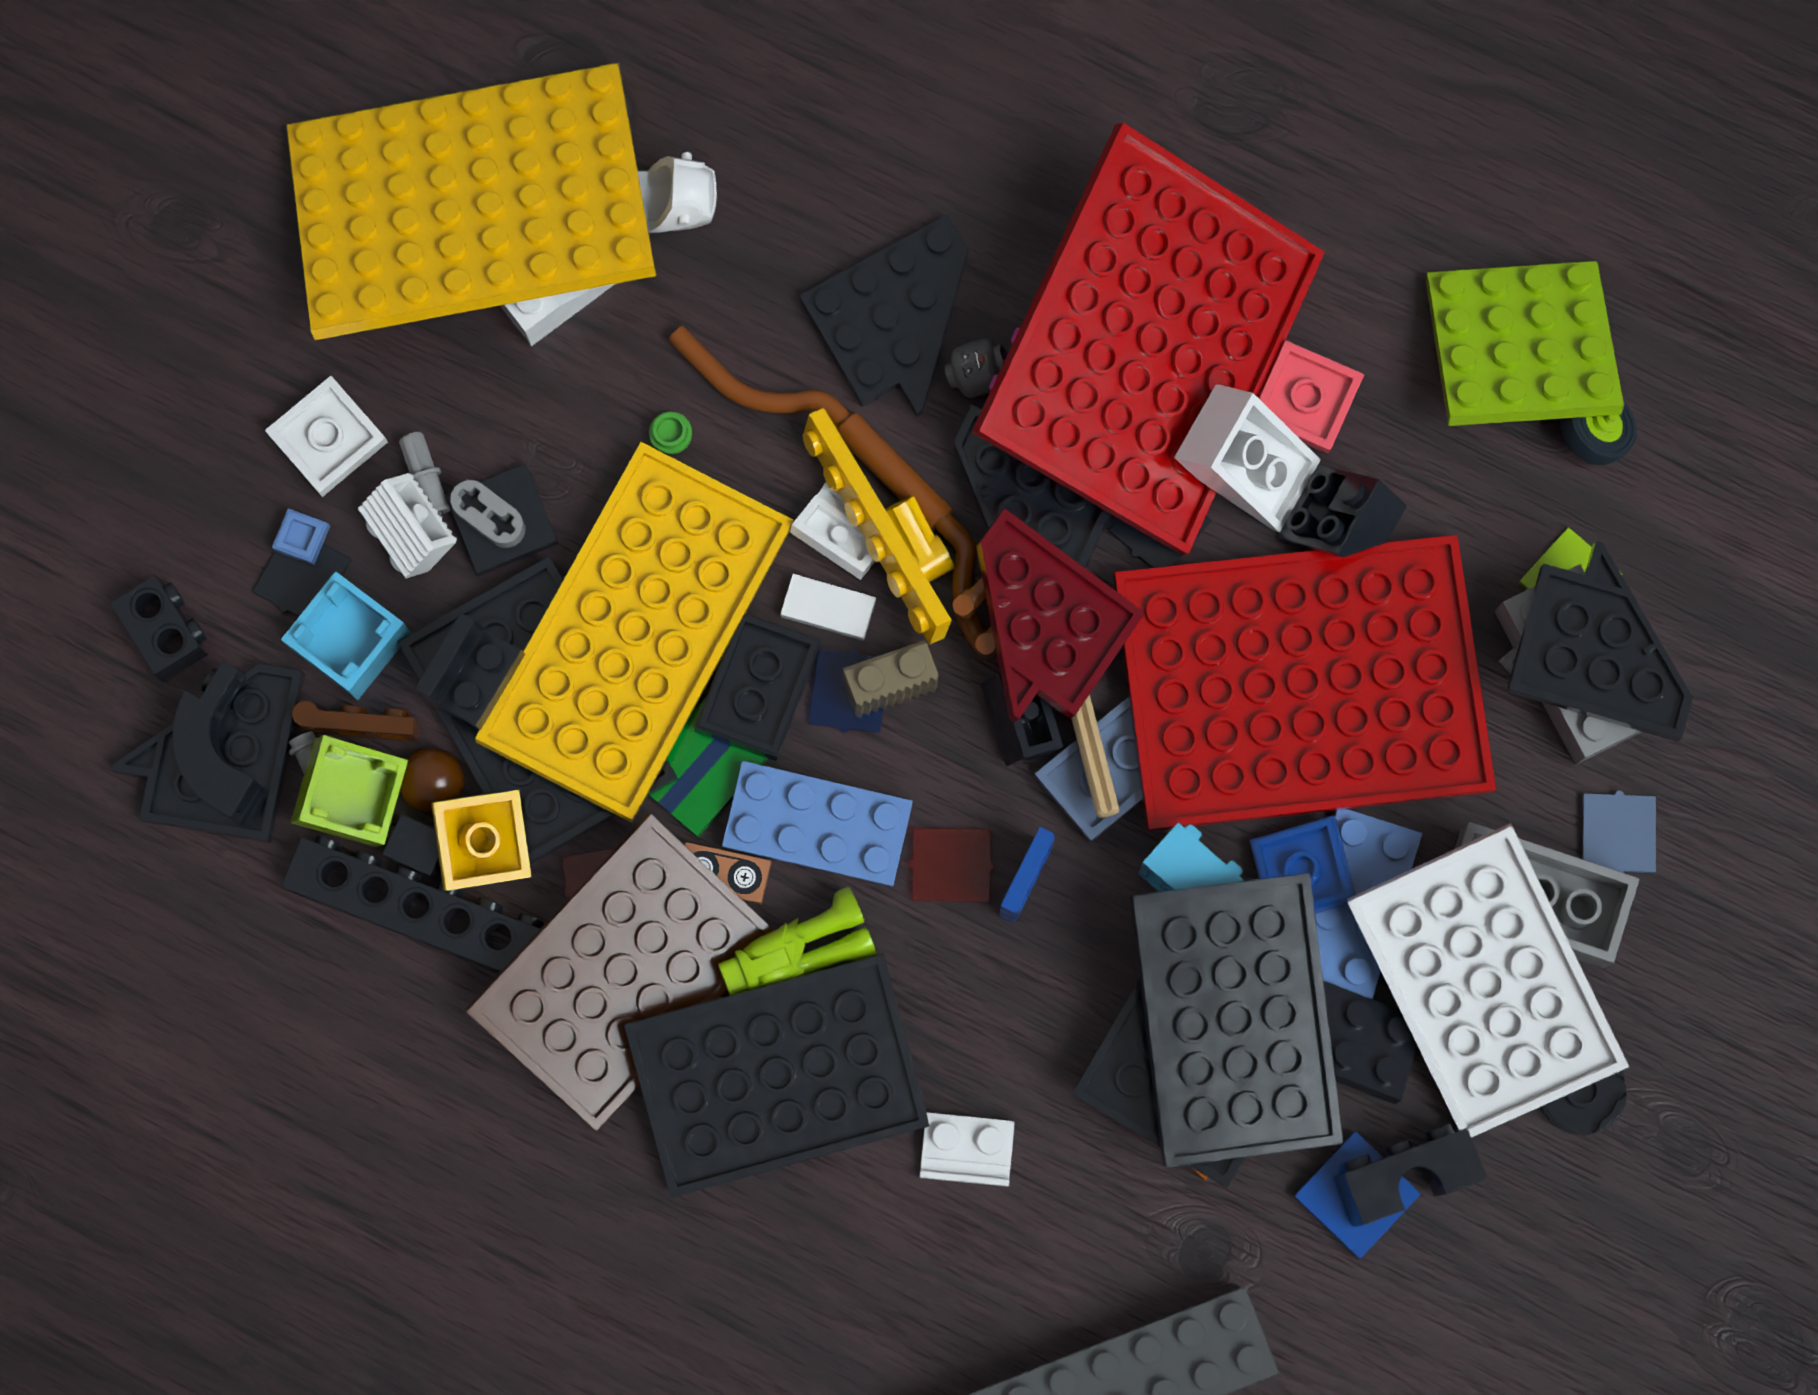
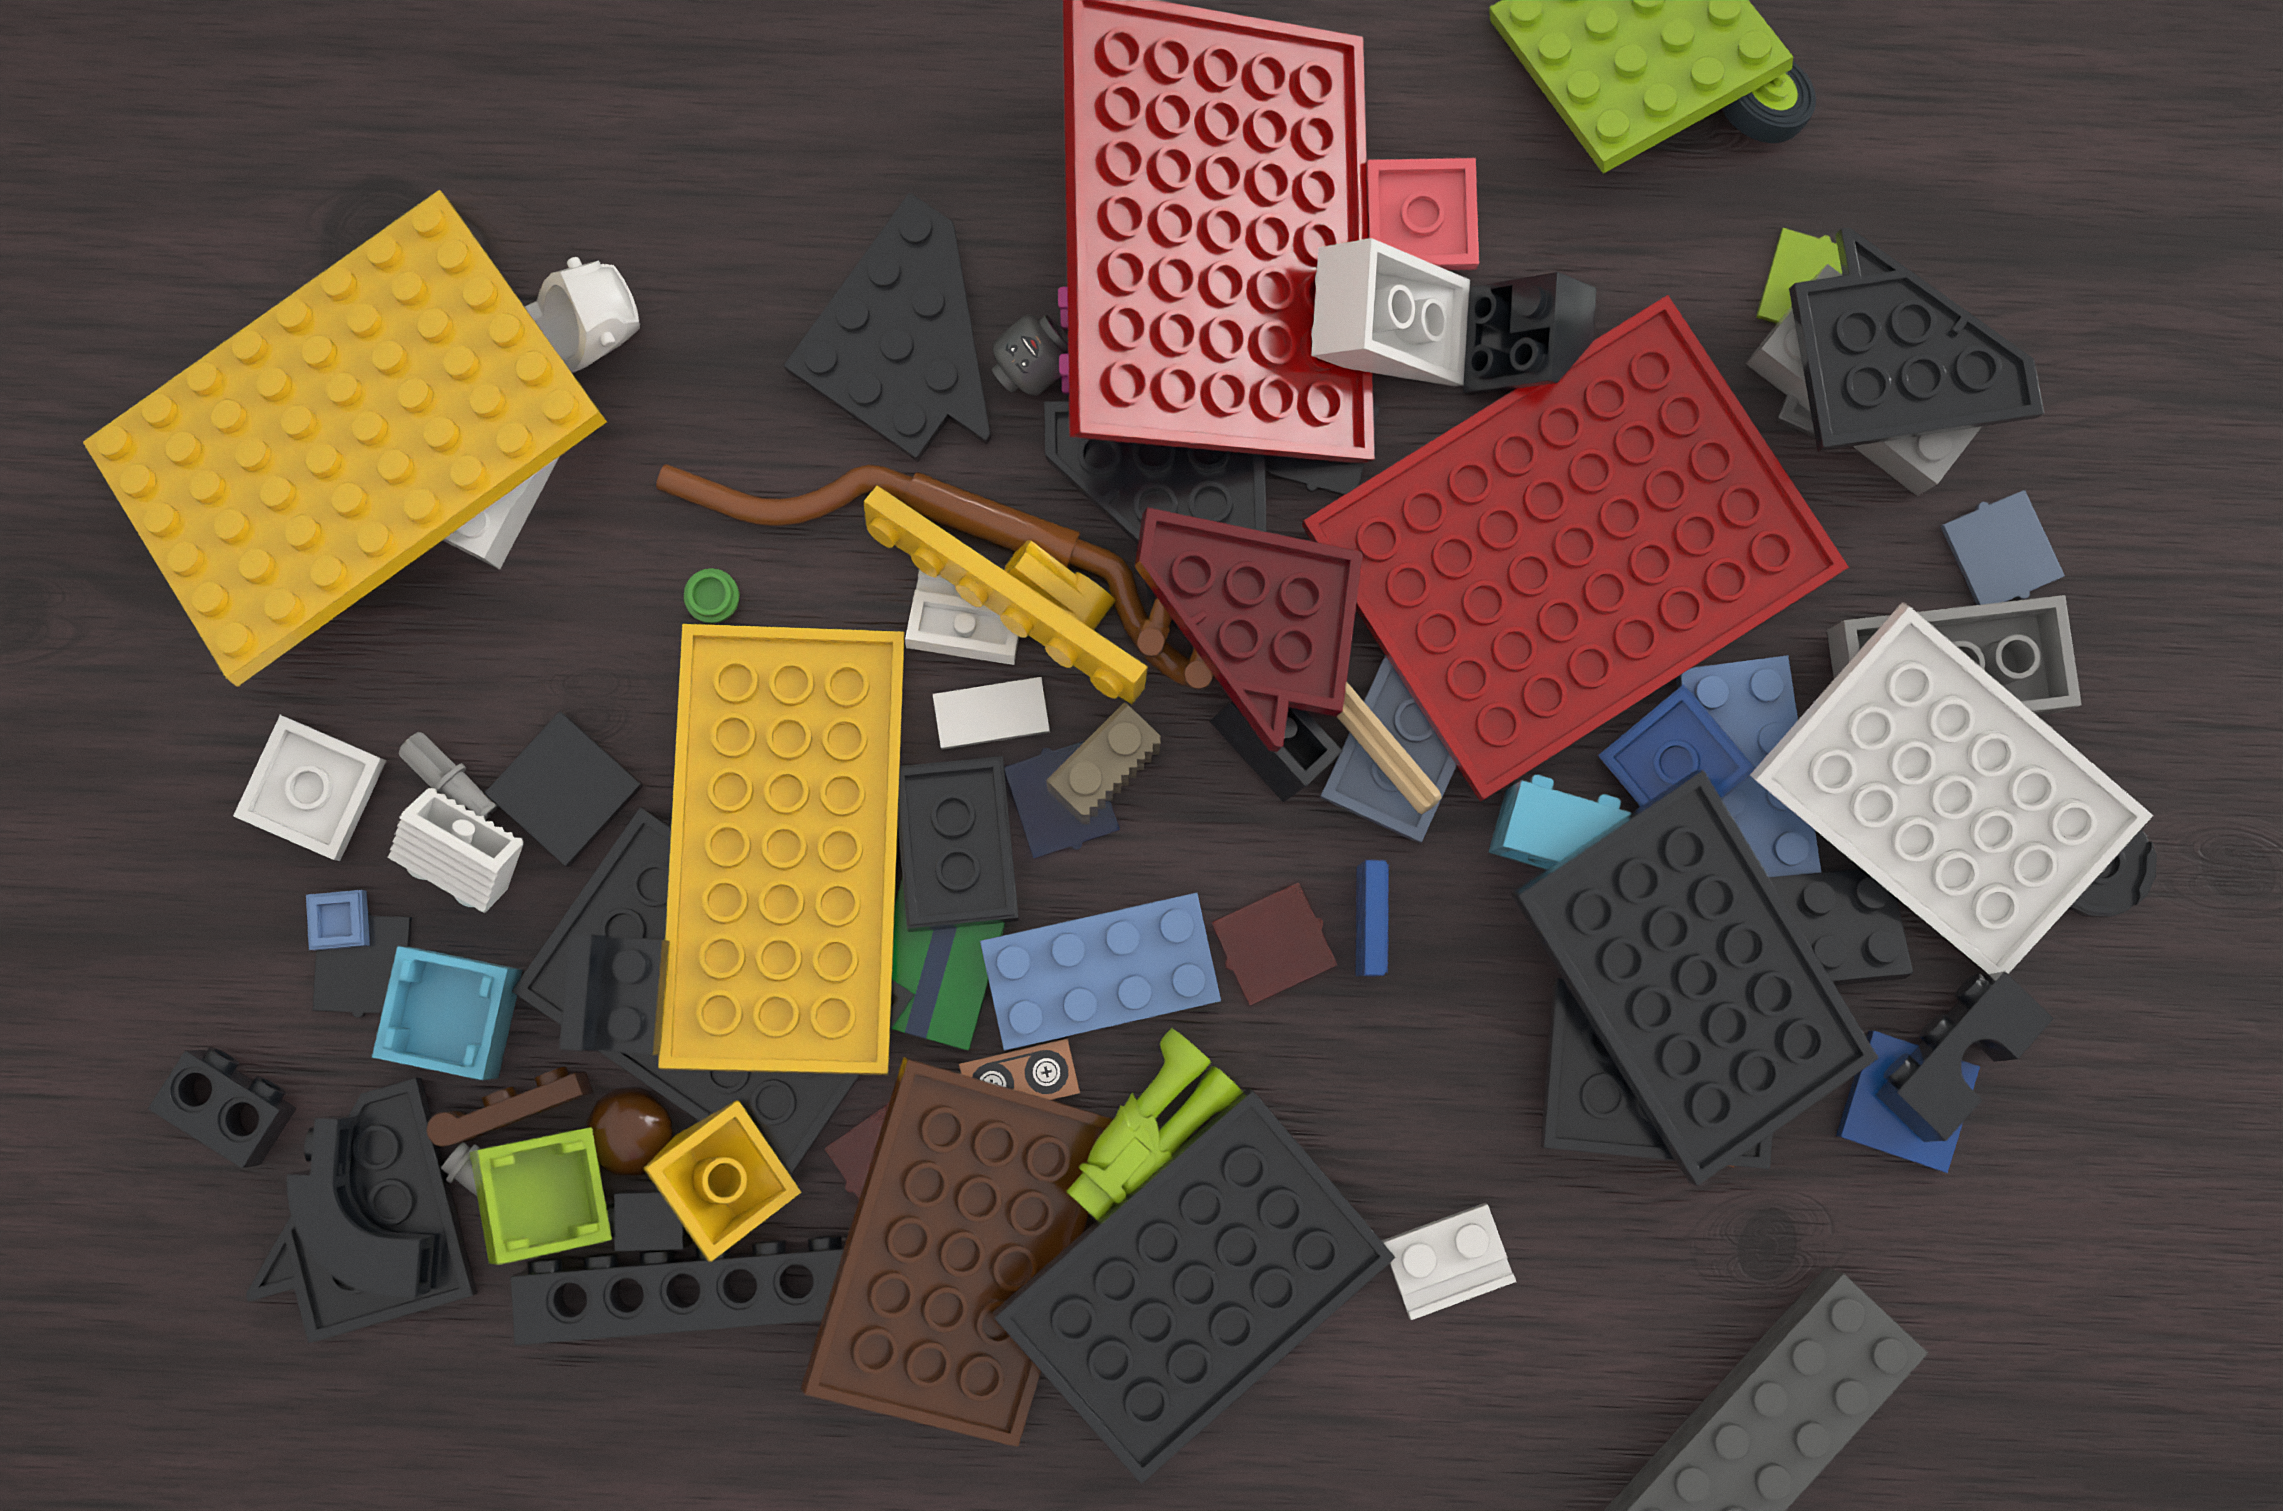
camera: 30 degrees left, 5 degrees up
(481, 521) = (547, 779): light grey beam -> none

